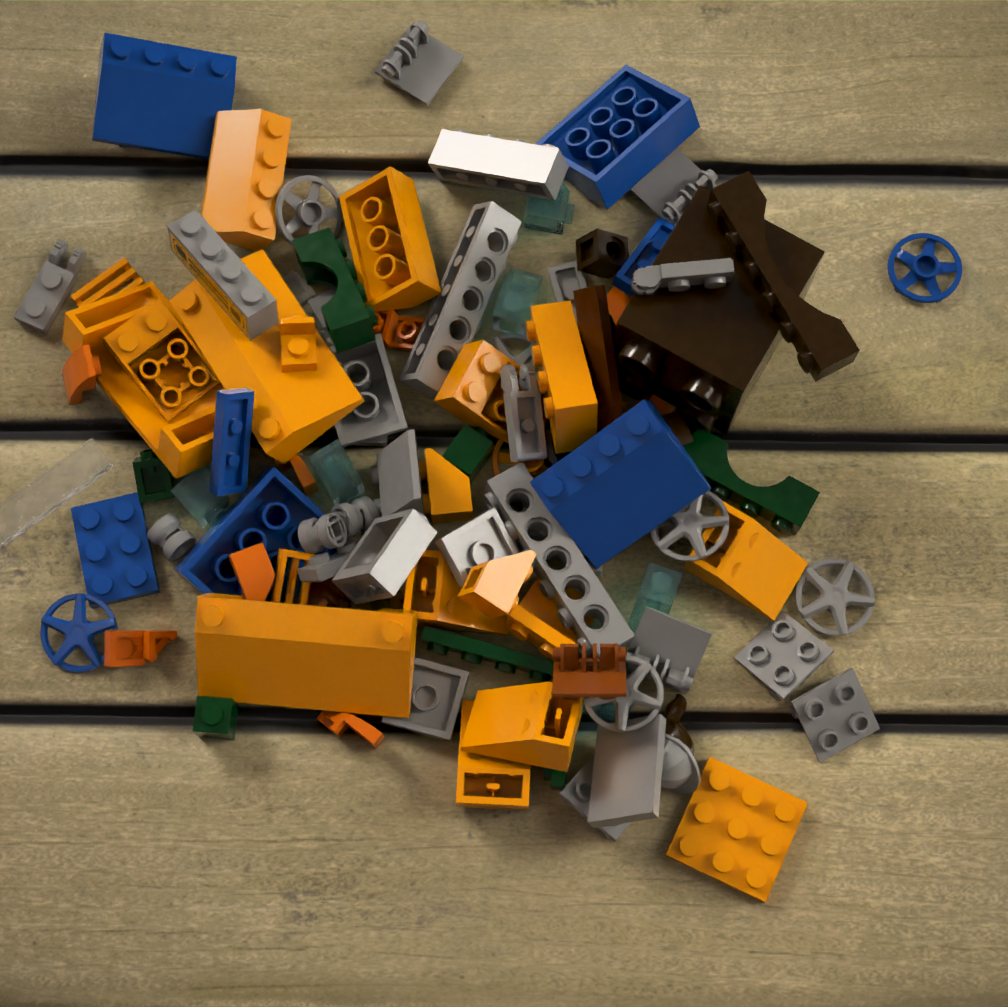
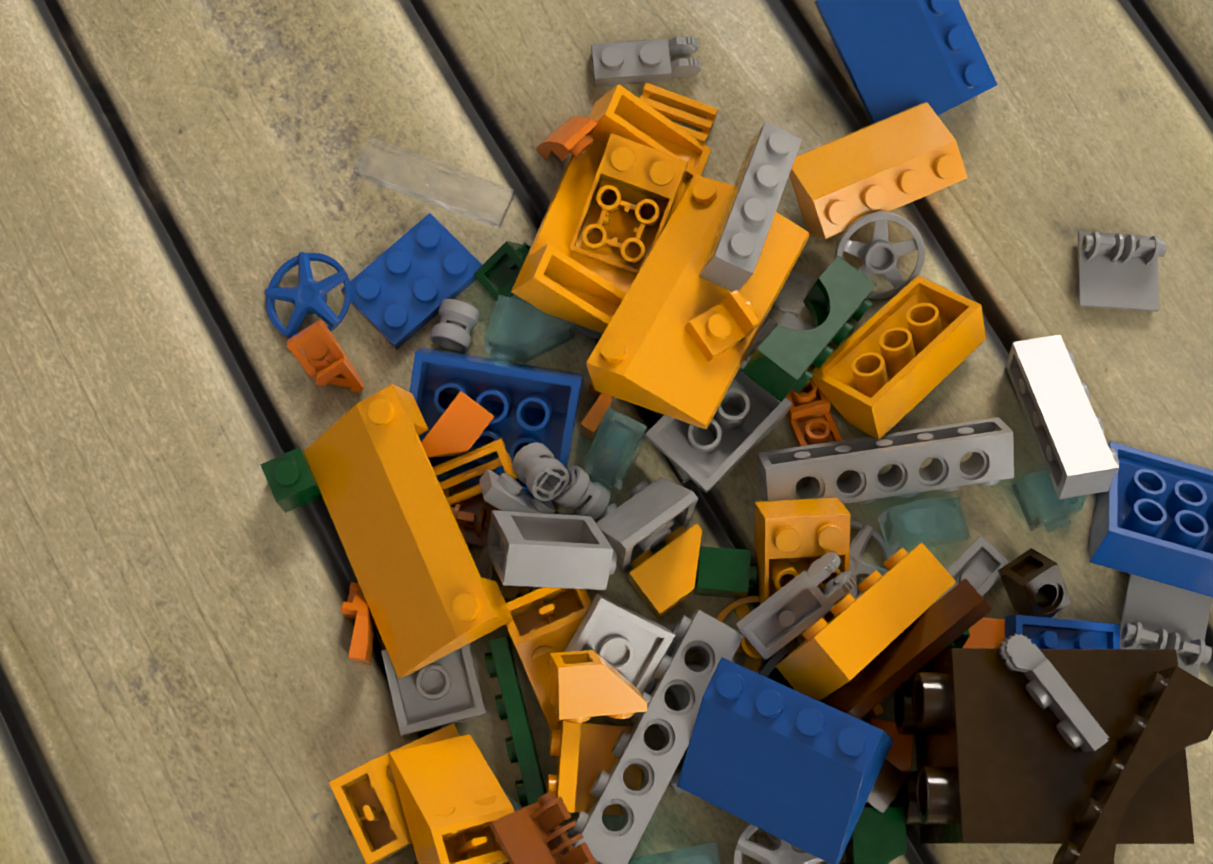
camera: 55 degrees right, 0 degrees up
(231, 441) = (579, 321): blue plate -> none

